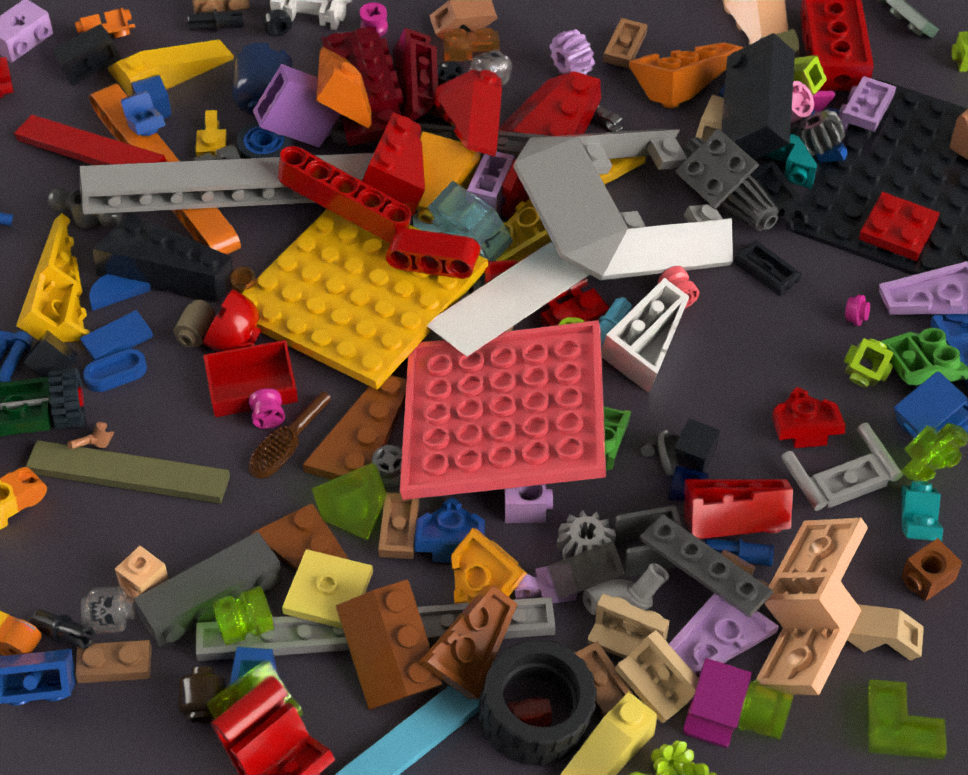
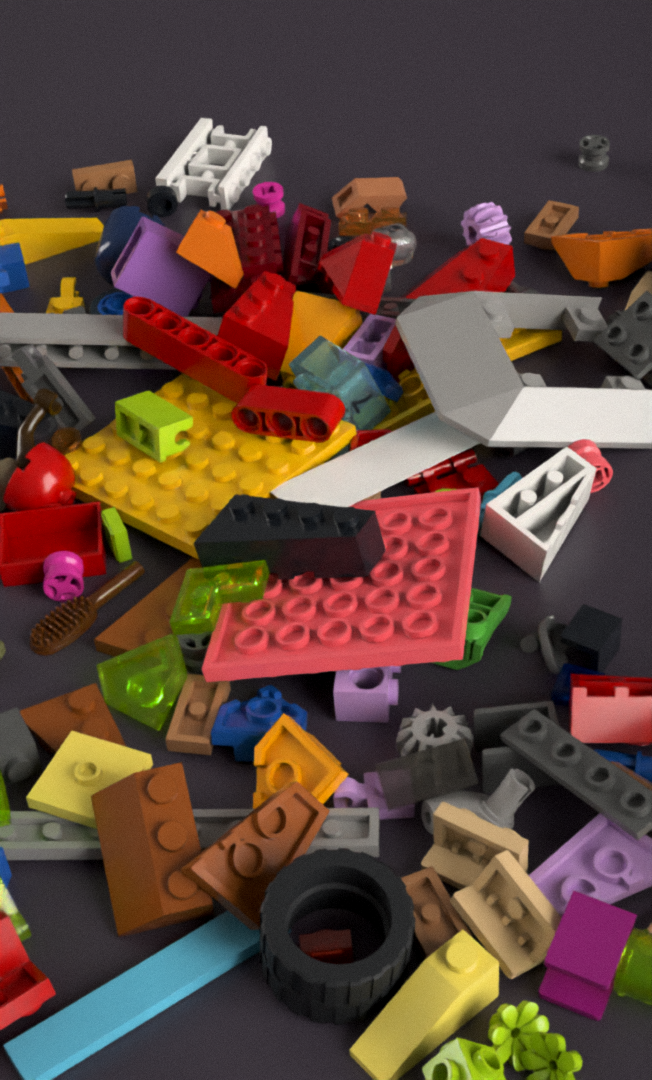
camera: 10 degrees right, 10 degrees down
(225, 234) = (43, 373): none -> dark grey hinge
(226, 251) = (43, 403): none -> dark brown piece
(303, 368) = (116, 535): none -> lime tile
(318, 266) = (152, 424): none -> lime hinge
(395, 418) = (209, 588): none -> clear neon green plate
(453, 374) = (293, 538): none -> black wedge
(507, 215) = (386, 382): none -> blue tile

